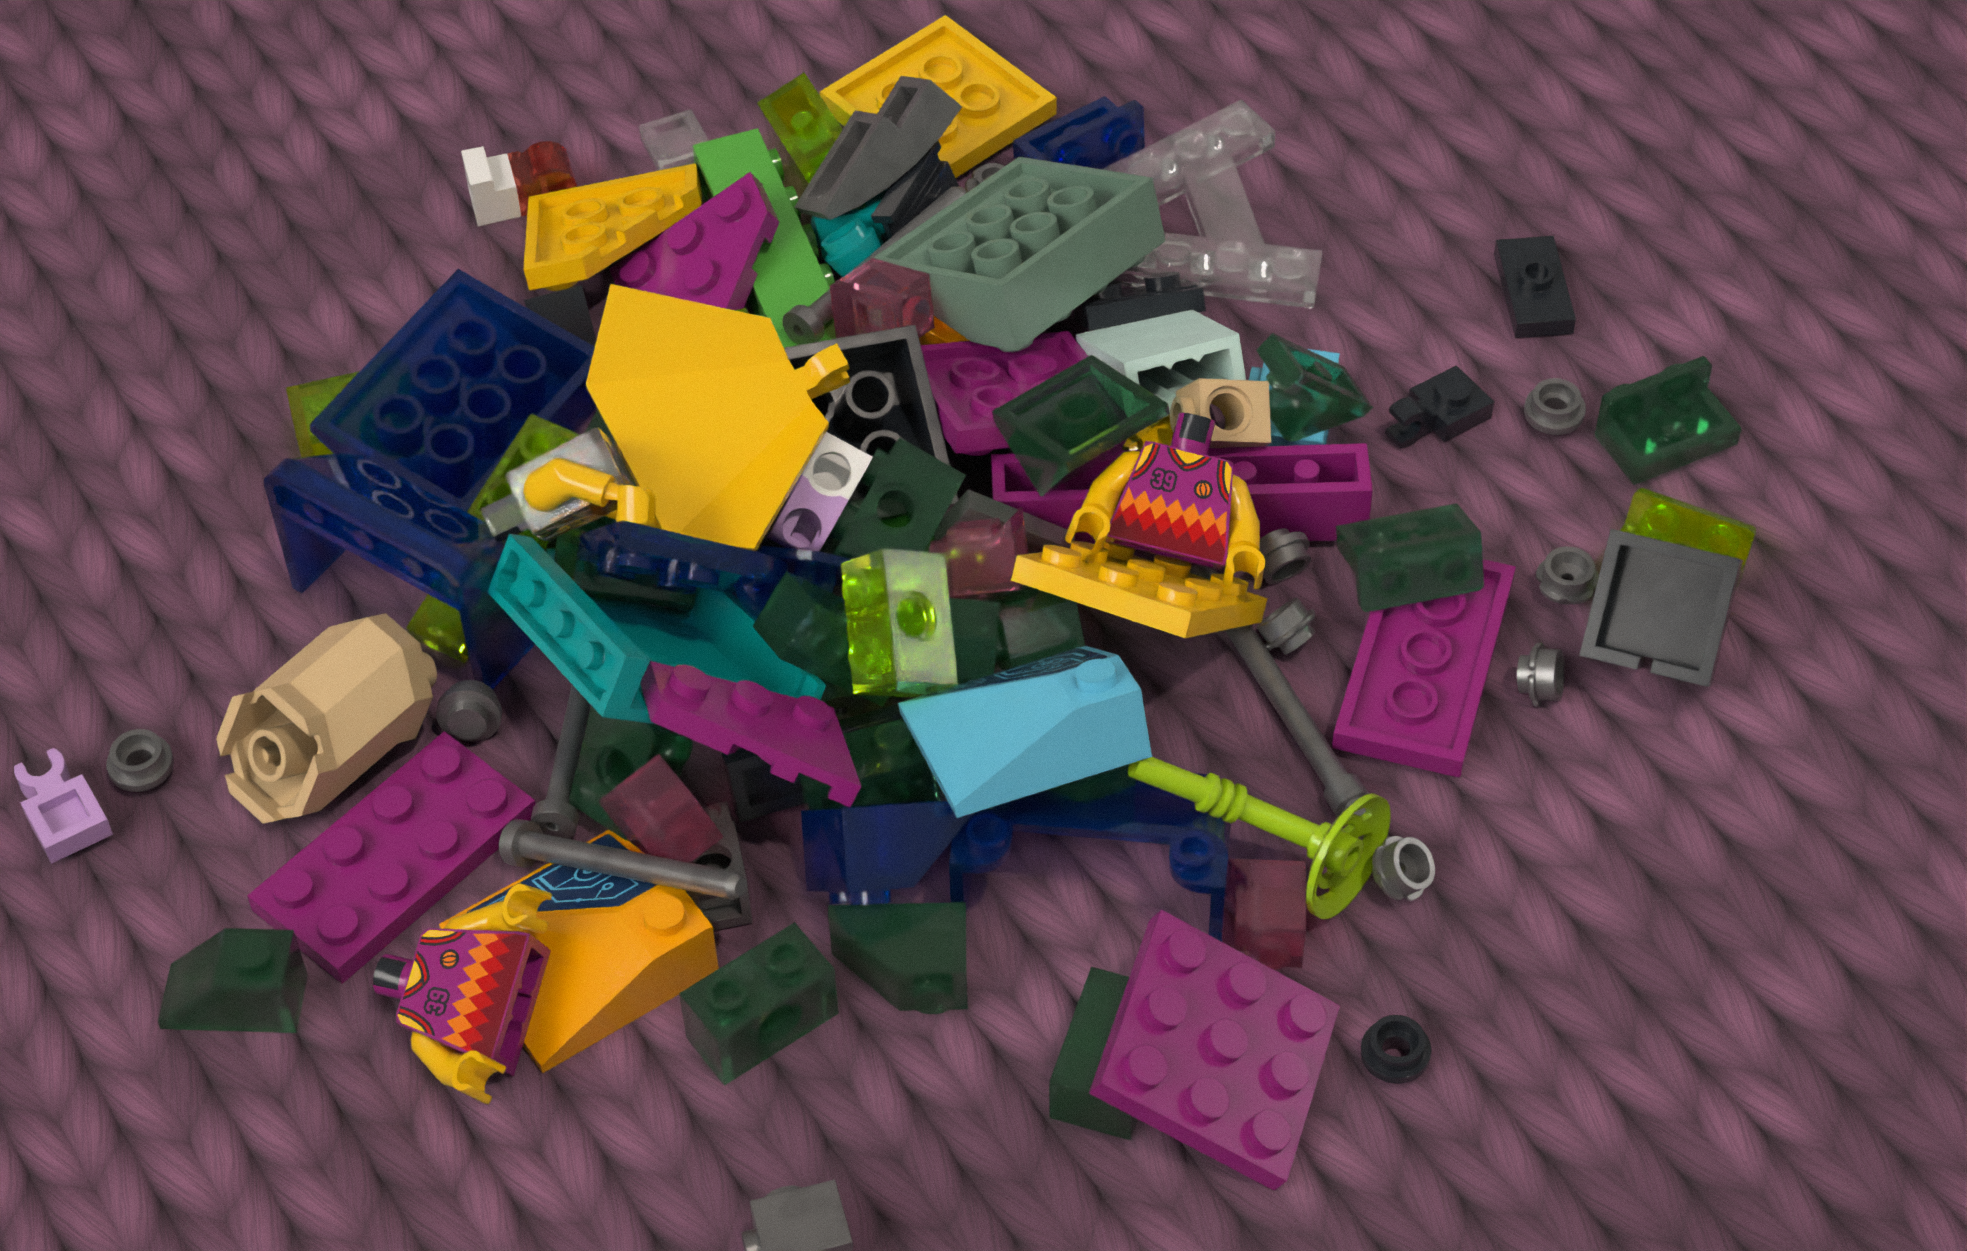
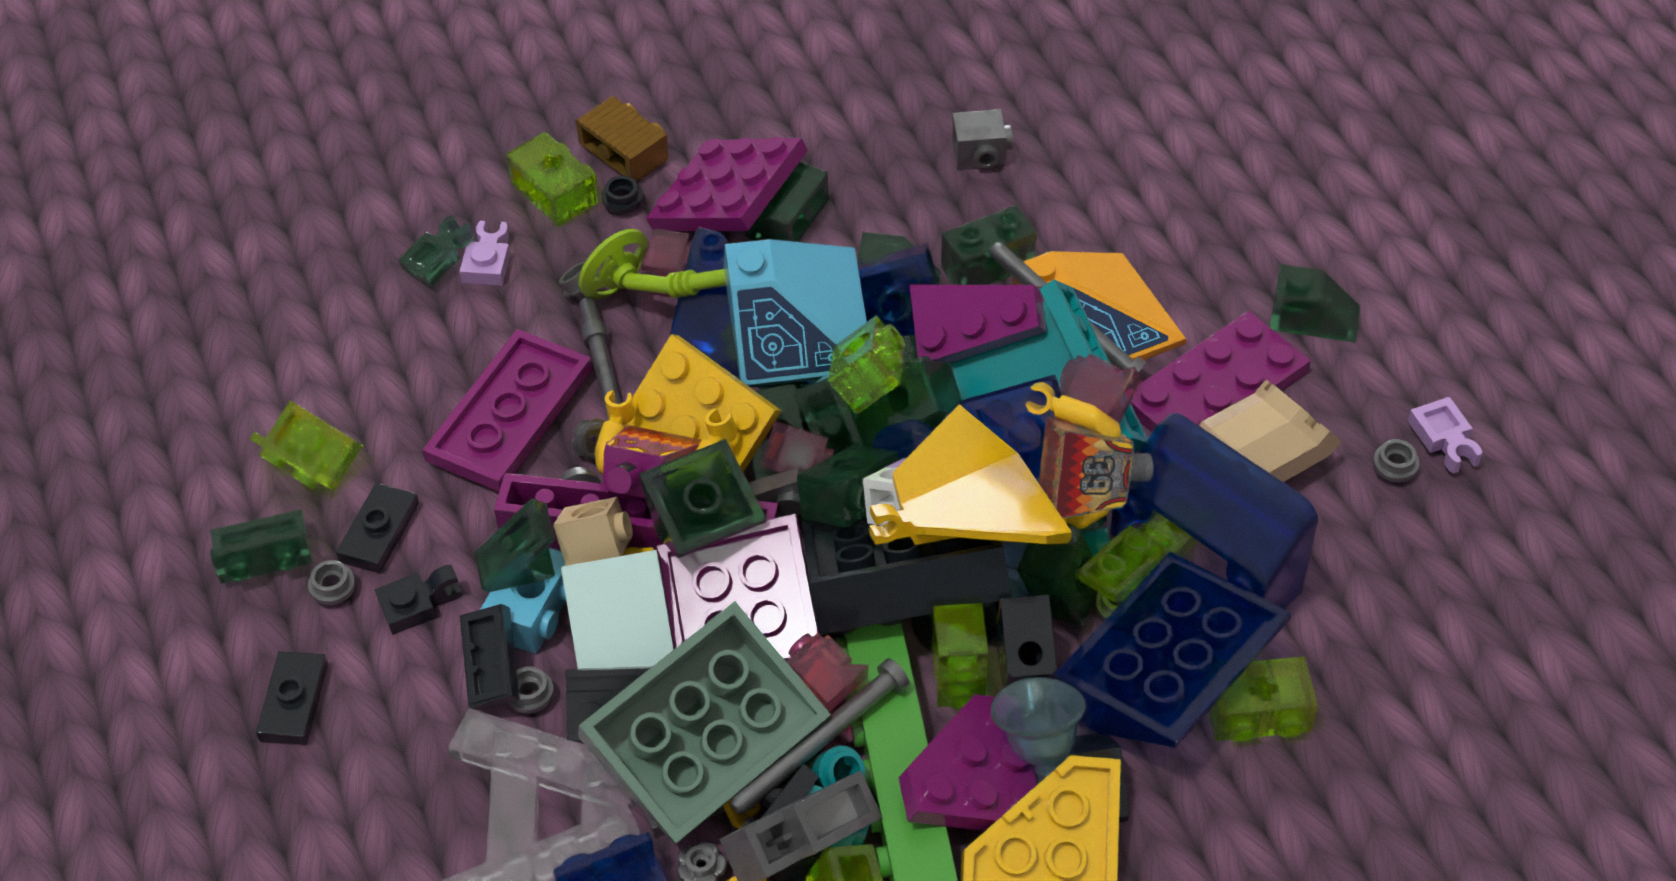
camera: 170 degrees left, 0 degrees up
(471, 990) = (1161, 262): torso -> none
(553, 535) = (1100, 384): none -> clear pink window
(616, 261) = (1039, 720): none -> clear light blue hat
(1253, 320) = (532, 679): none -> flat silver plate
(1306, 313) = (489, 657): none -> black plate
(1413, 556) = (492, 446): clear green bracket -> none
(1433, 1149) = (623, 138): none -> pearl gold brick
(1522, 1048) = (552, 178): none -> clear neon green brick
(1532, 488) = (377, 527): none -> black plate
(1541, 674) = (438, 387): flat silver plate -> none
(1567, 576) = (387, 452): flat silver plate -> none
(1575, 906) = (488, 258): none -> lavender plate
(1650, 881) = (434, 255): none -> clear green plate
(1661, 606) = (336, 379): black piece -> none

